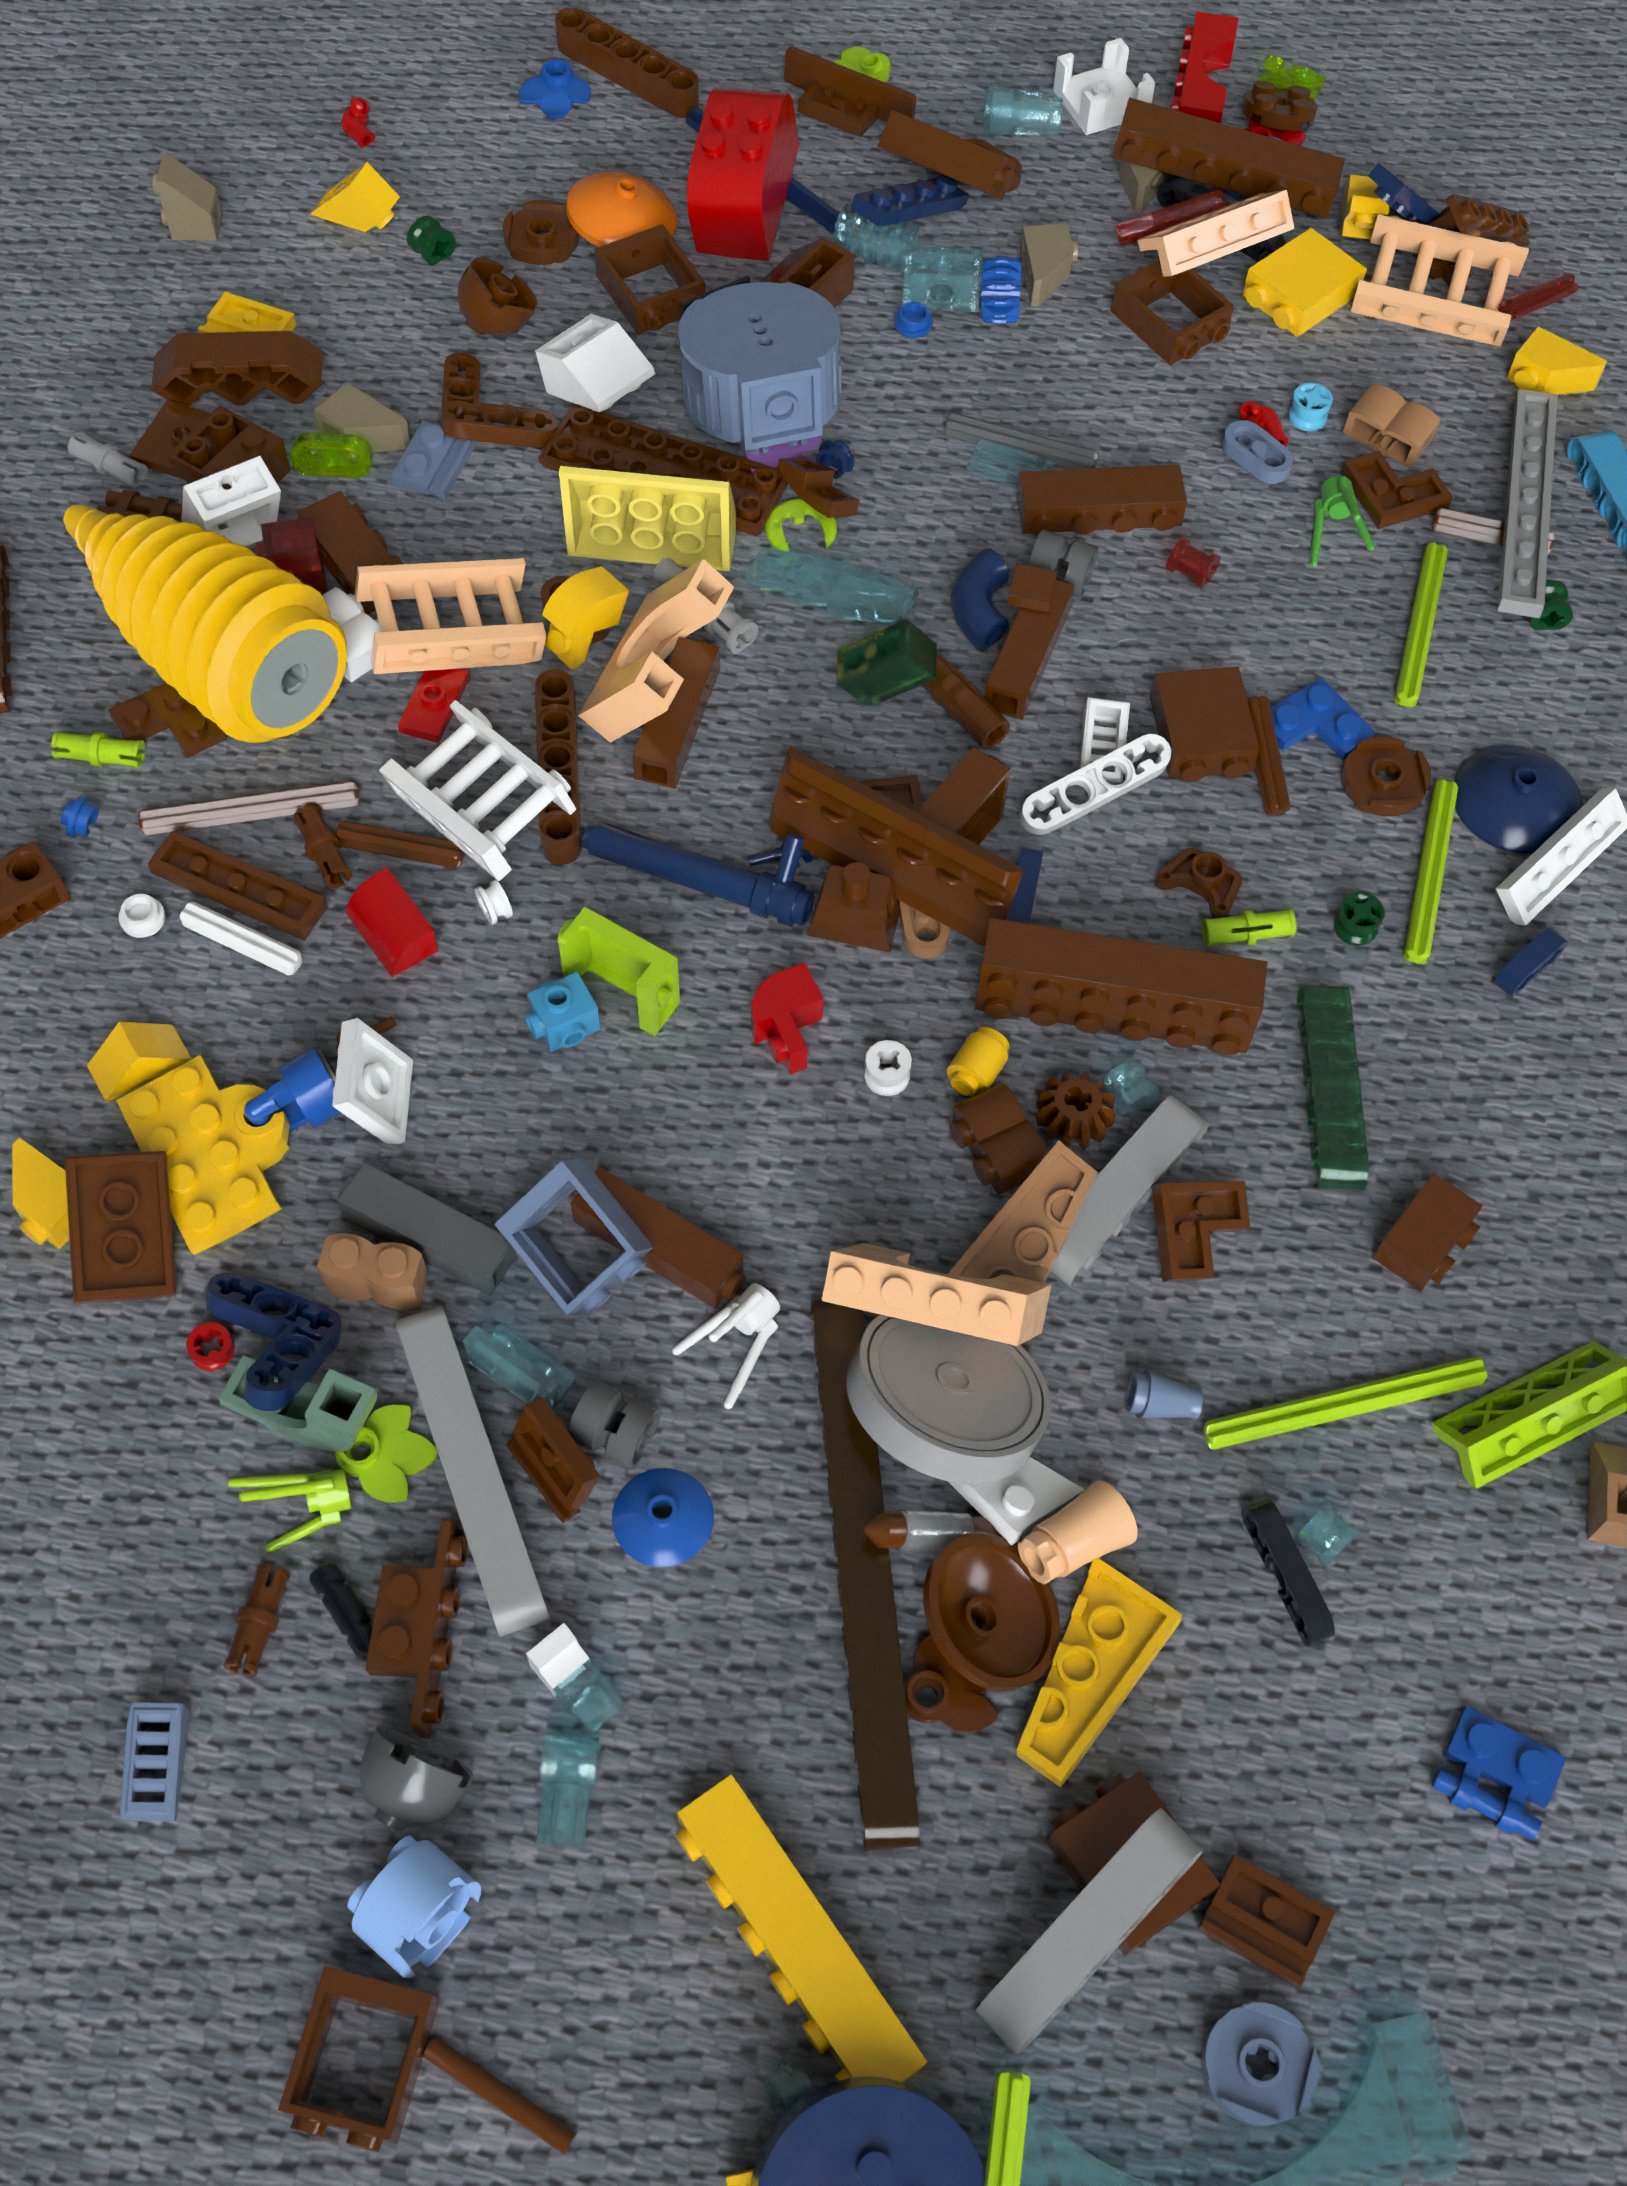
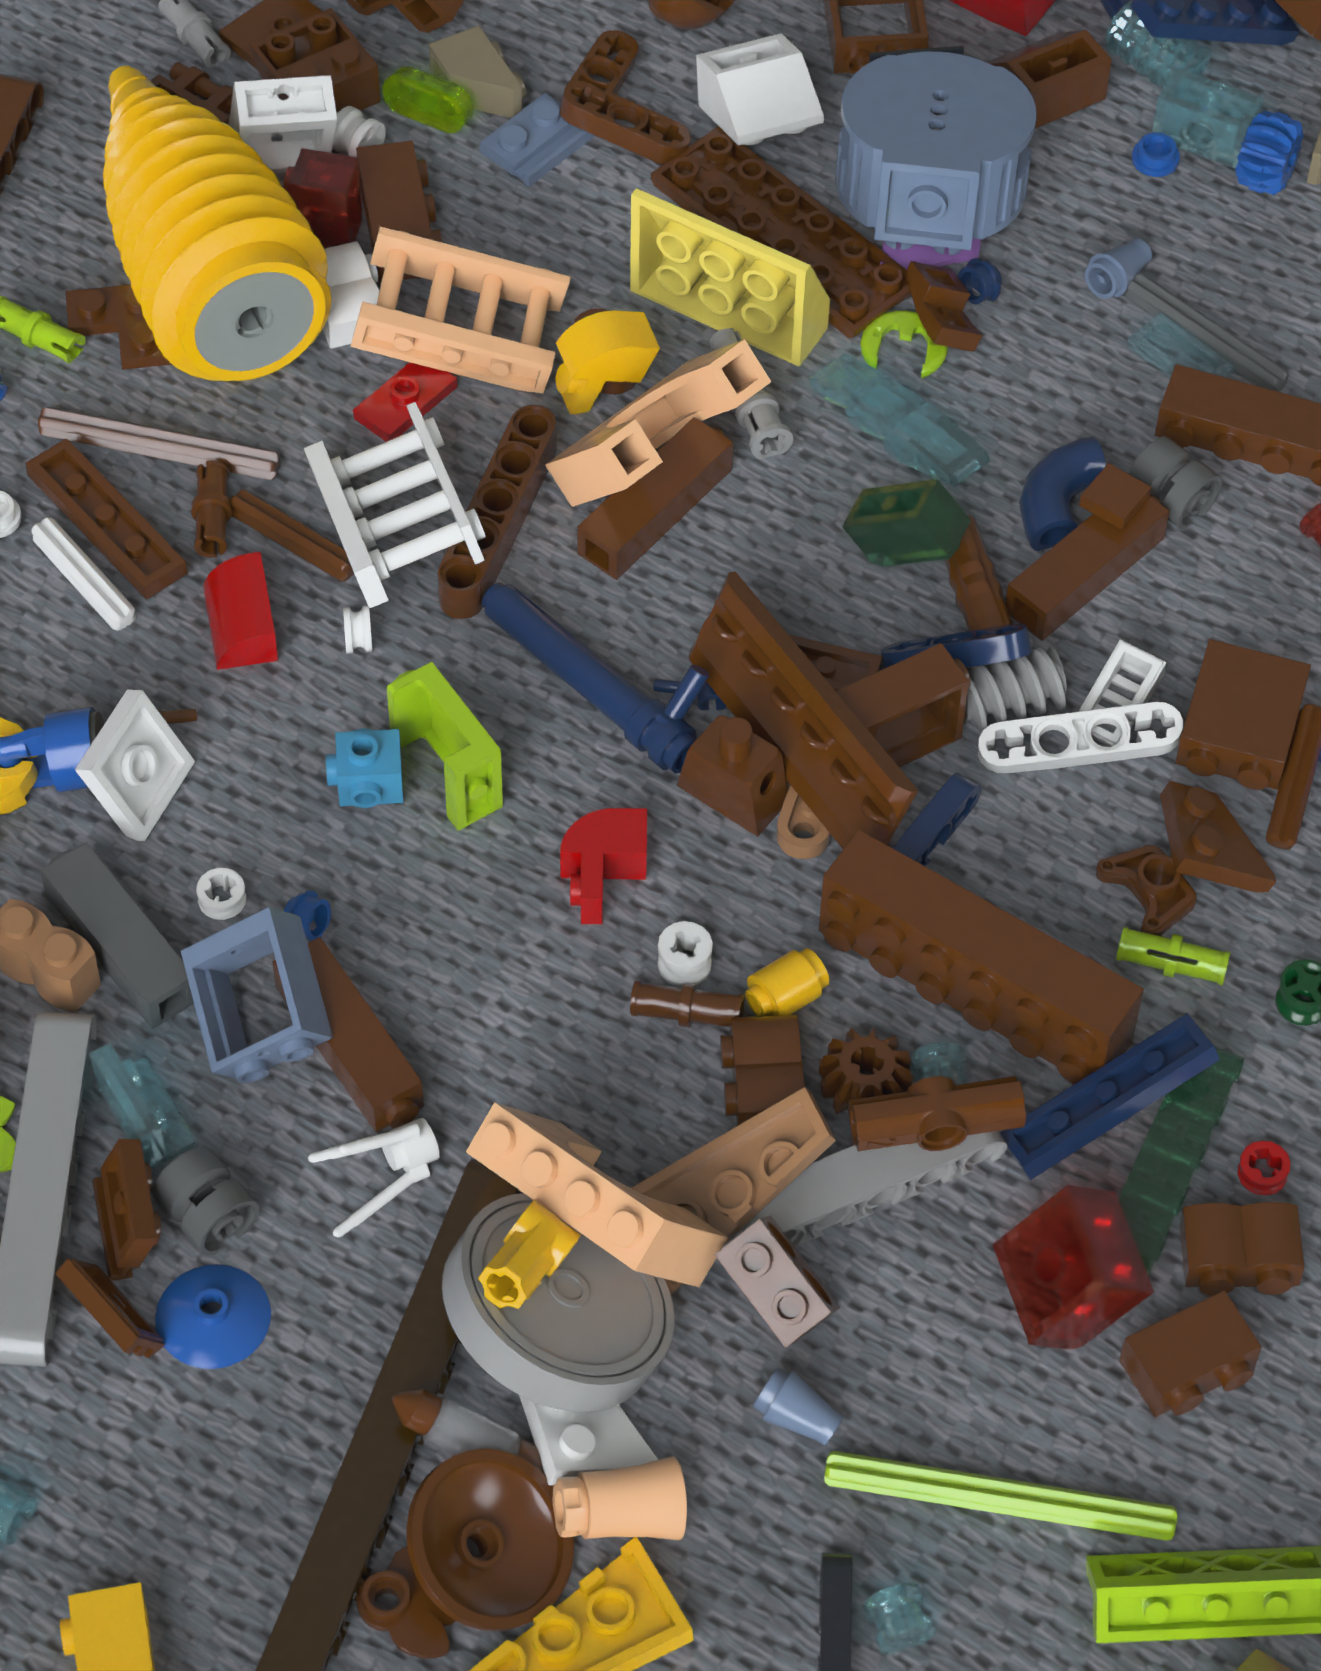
camera: 25 degrees right, 5 degrees down
(292, 500) = (355, 131): none -> white wheel
(489, 1147) = (221, 909): none -> white bush
(571, 1147) = (310, 908): none -> blue plate
(574, 1679) = (38, 1430): leg -> none
(580, 1547) = (110, 1308): none -> reddish brown tile
(909, 1107) = (685, 1004): none -> reddish brown pin
(923, 1363) = (530, 1252): none -> yellow piece
(930, 417) = (1113, 270): none -> sand blue cone
(990, 739) = (970, 647): none -> dark blue beam
(1033, 759) = (1014, 686): none -> light grey piece
(1104, 1304) = (777, 1280): none -> brick
(1157, 1120) = (936, 1113): none -> reddish brown piece
(1186, 1216) = (922, 1231): reddish brown plate -> none
(1229, 828) = (1209, 841): none -> reddish brown wing
(1269, 1054) = (1110, 1095): none -> dark blue plate
(1318, 1201) = (1072, 1268): none -> clear red brick
(1397, 1077) = (1252, 1177): none -> red bush
(1419, 1133) = (1241, 1247): none -> reddish brown brick

